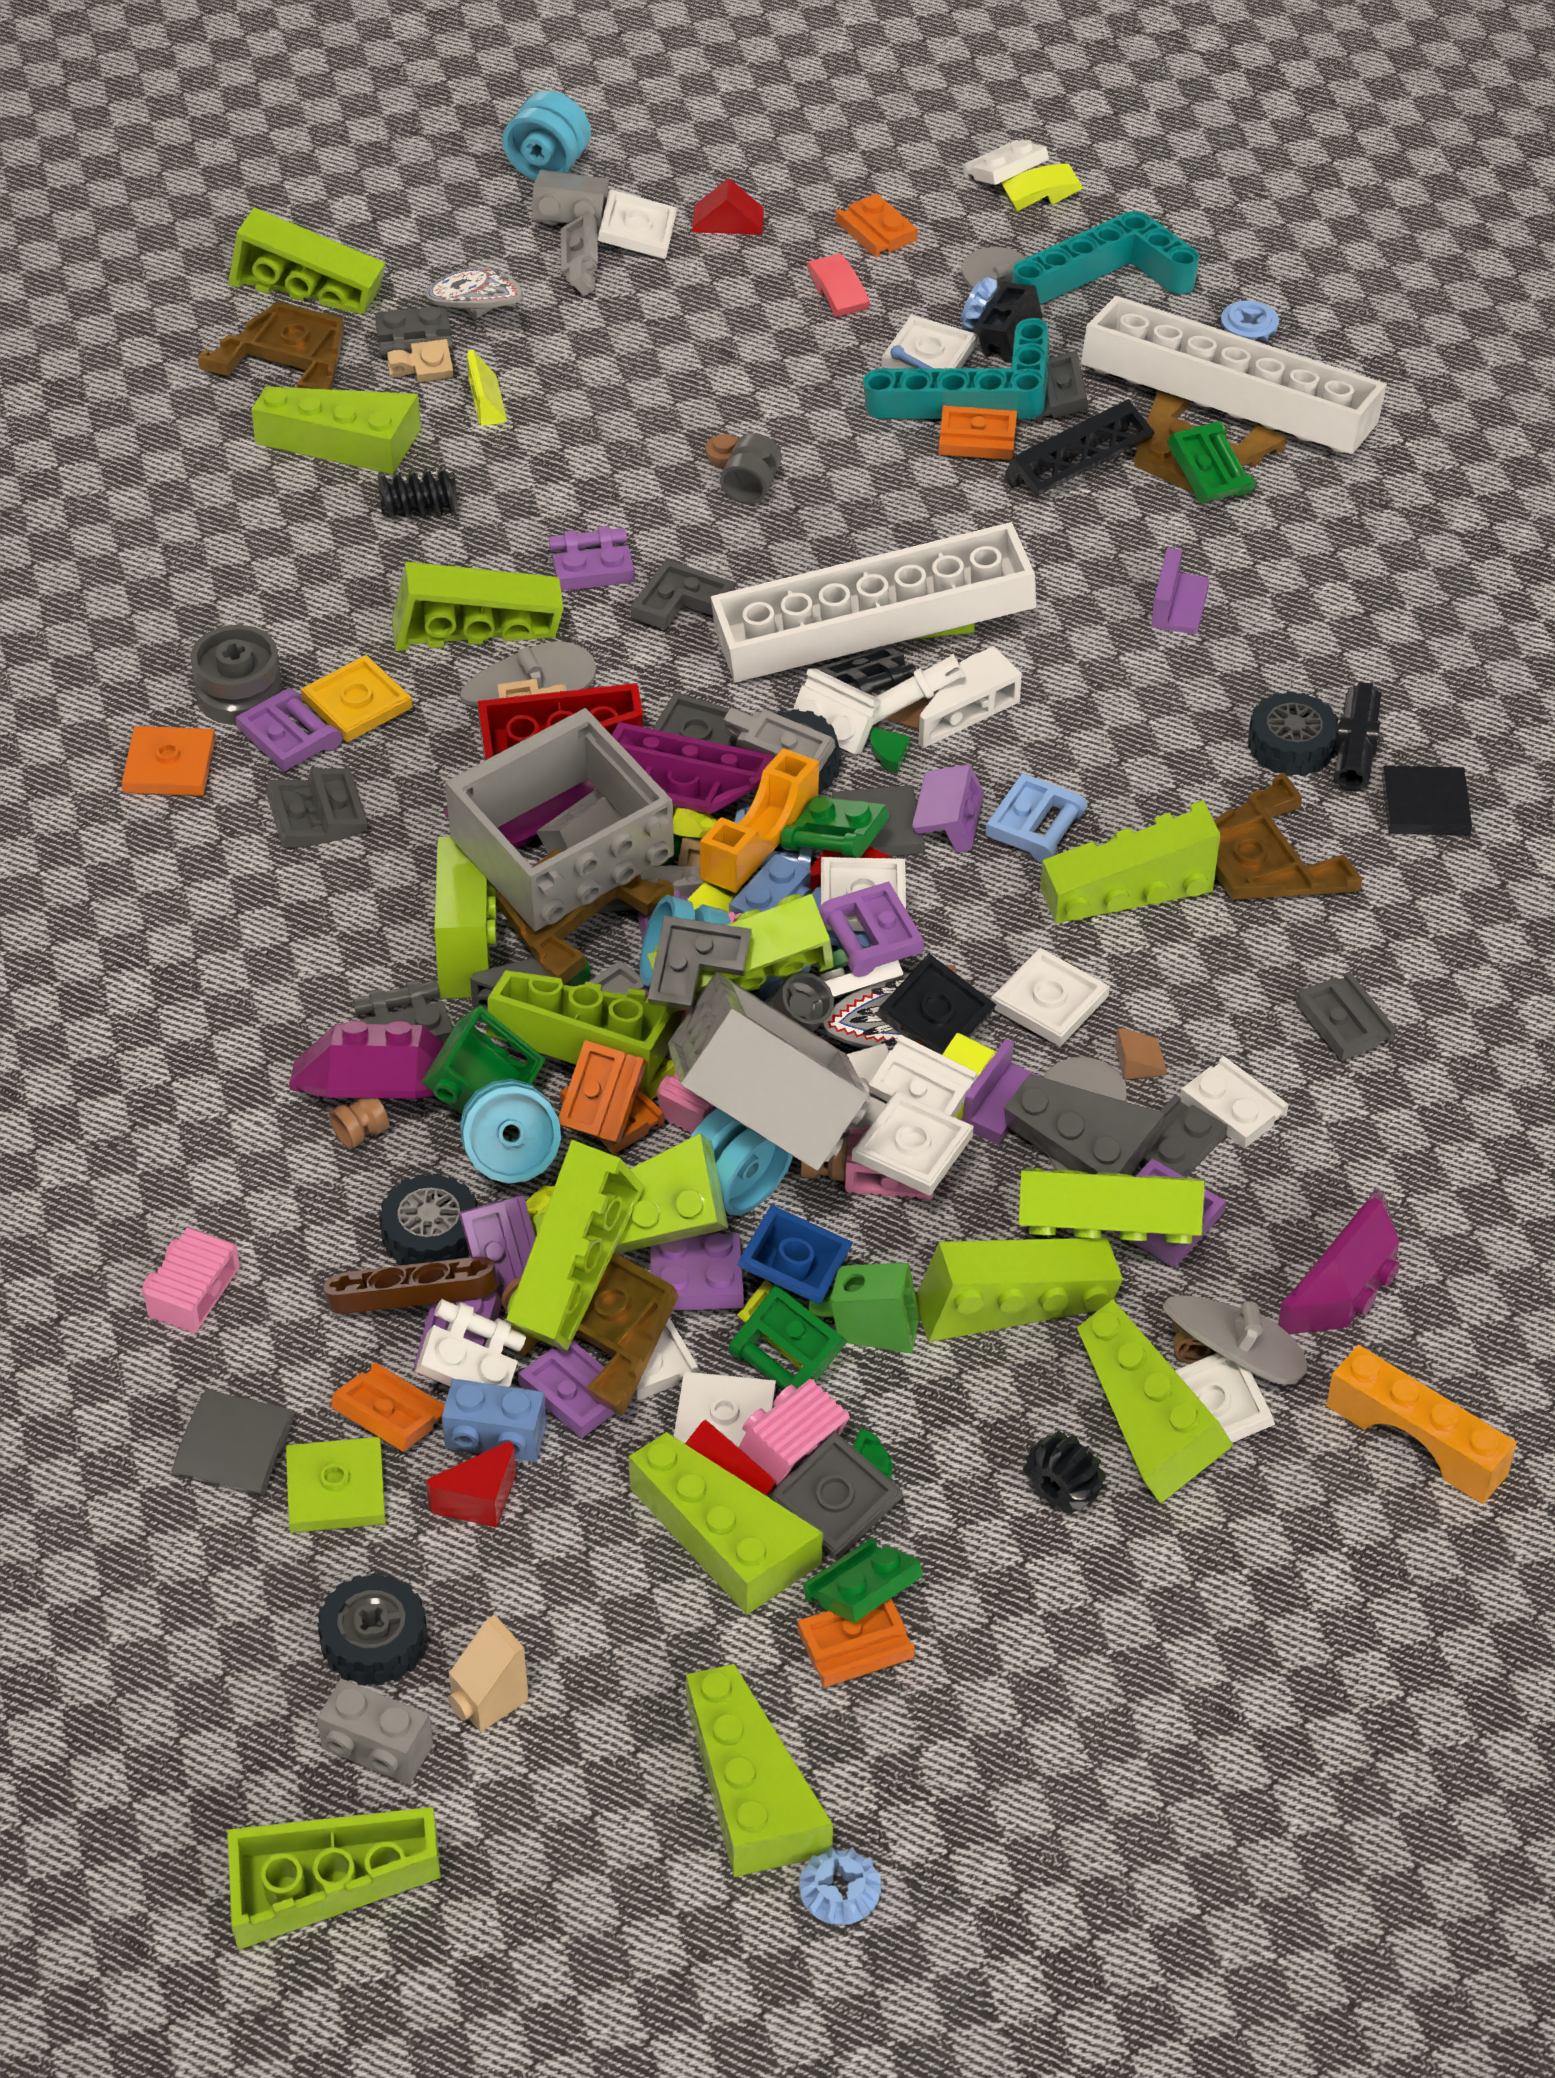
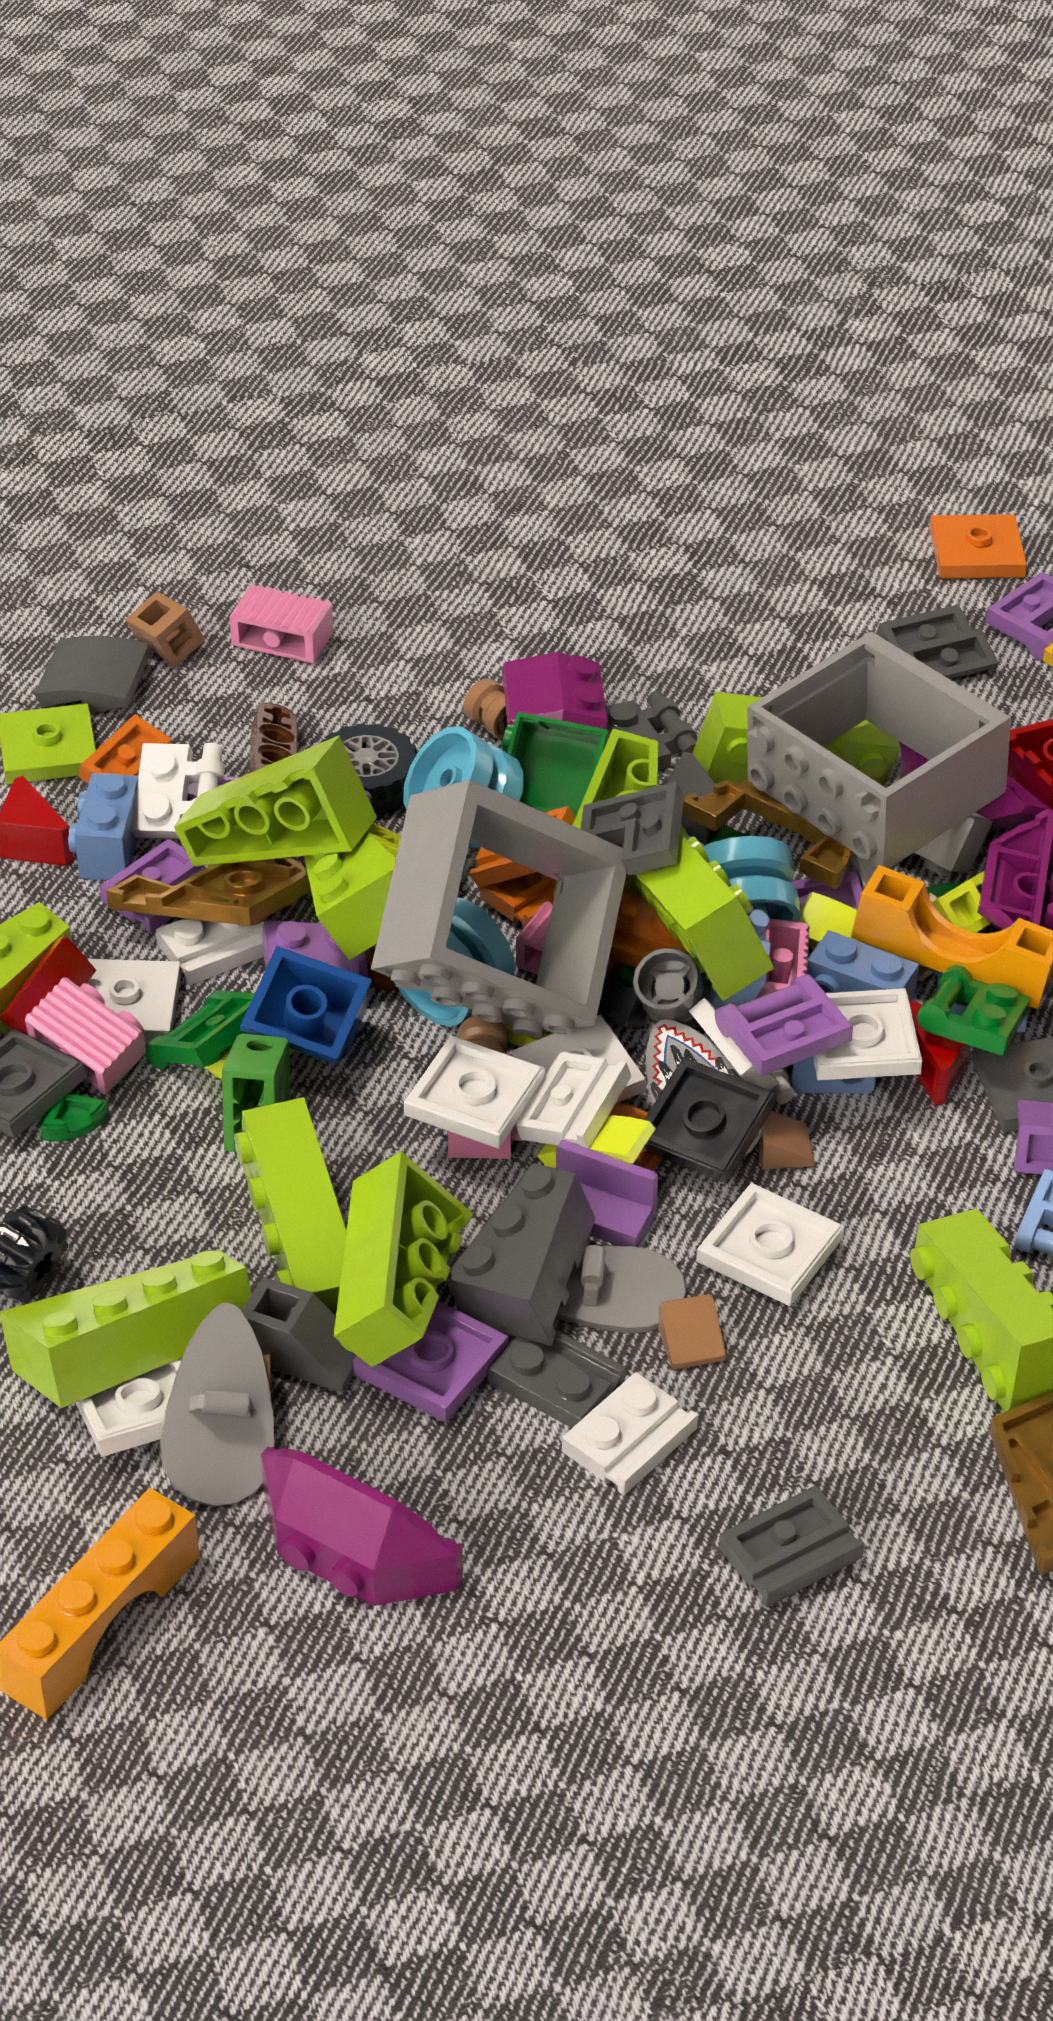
camera: 85 degrees right, 5 degrees down
(182, 1360) = (166, 628): none -> medium nougat brick
(1147, 1289) = (298, 1334): none -> dark grey slope

